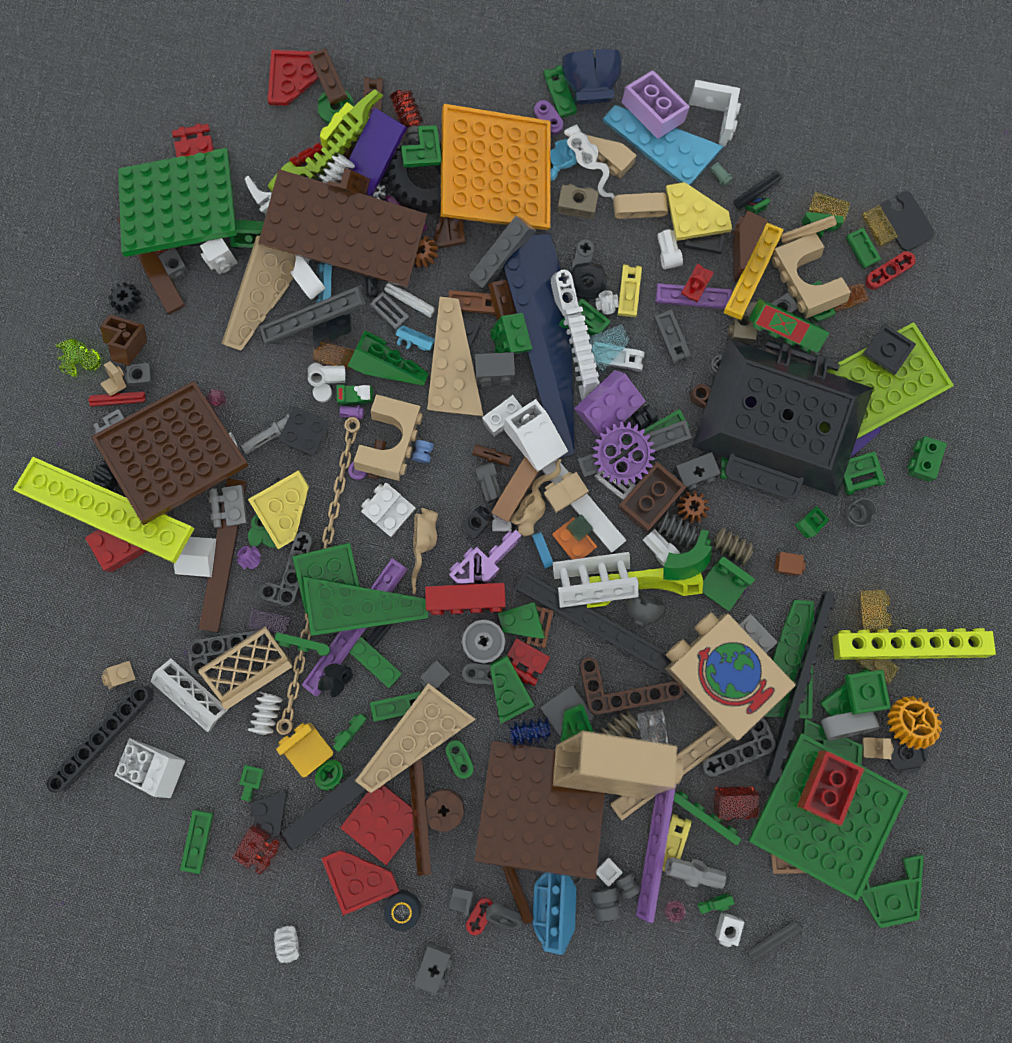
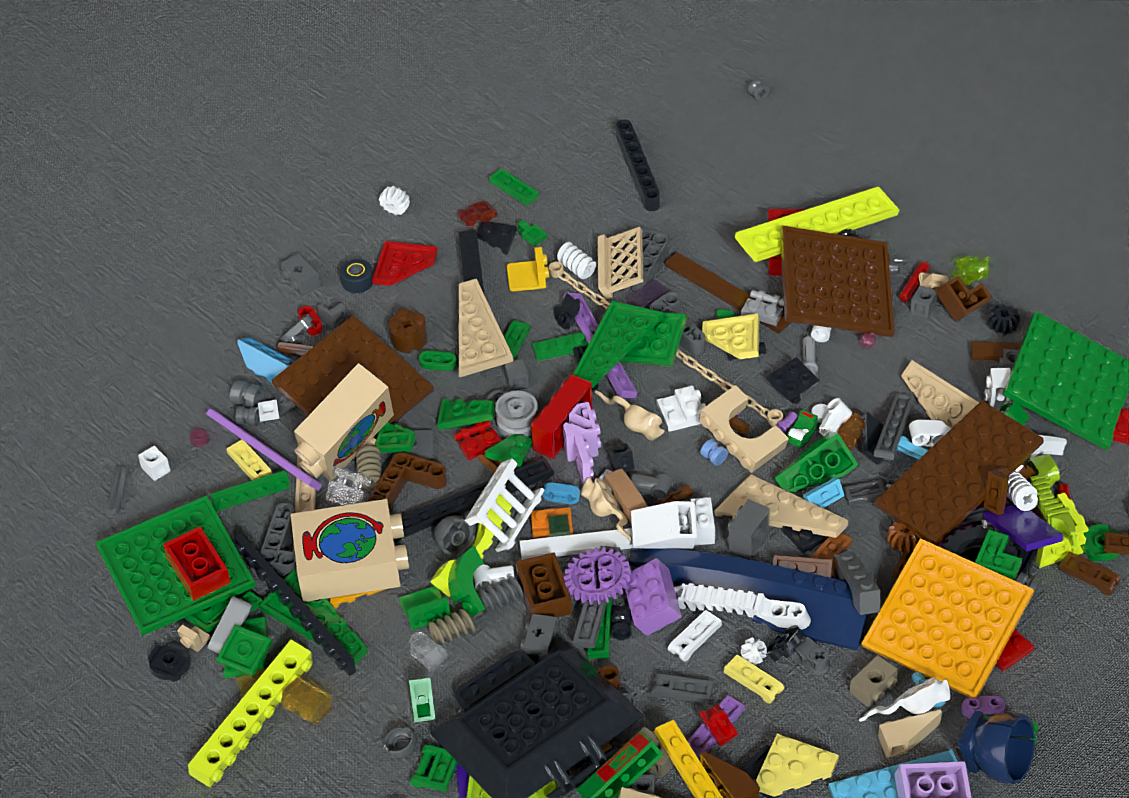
camera: 125 degrees right, 35 degrees down
(118, 675) = (678, 193): tan bracket -> none
(149, 768) = (590, 182): white slope -> none
(183, 698) = (625, 221): white fence -> none
(196, 557) = (740, 273): white slope -> none
(248, 557) = (711, 302): medium lavender gear -> none
(303, 644) = (618, 294): green plate -> none
(322, 779) = (495, 277): green gear -> none
(344, 737) = (515, 298): green plate -> none
(380, 823) = (432, 294): red plate -> none
(406, 108) = (1062, 591): clear red piece -> none
(409, 299) = (861, 512): white axle -> none
(419, 818) = (402, 303): reddish brown tile -> none
(511, 334) = (769, 551): green bracket -> none
(530, 731) = (419, 409): clear blue piece -> none
(565, 492) = (598, 527): tan brick -> none
(594, 319) = (746, 628): green wing -> none
(608, 345) = (709, 626): clear light blue wing -> none
(640, 205) = (836, 728): tan beam -> none
(670, 254) = (765, 729): white piece -> none
(695, 873) = (206, 466): light grey piece -> none
(699, 511) = (510, 618): dark orange gear -> none
(720, 902) = (178, 467): green plate -> none
(736, 802) = (243, 513): clear red brick -> none
(757, 633) = (362, 609): light grey plate -> none
(766, 547) = (427, 651): none -> clear piece
(789, 564) = (401, 662): dark orange brick -> none
(899, 899) = (67, 585): green wing -> none
(906, 722) = (196, 671): light orange gear -> none

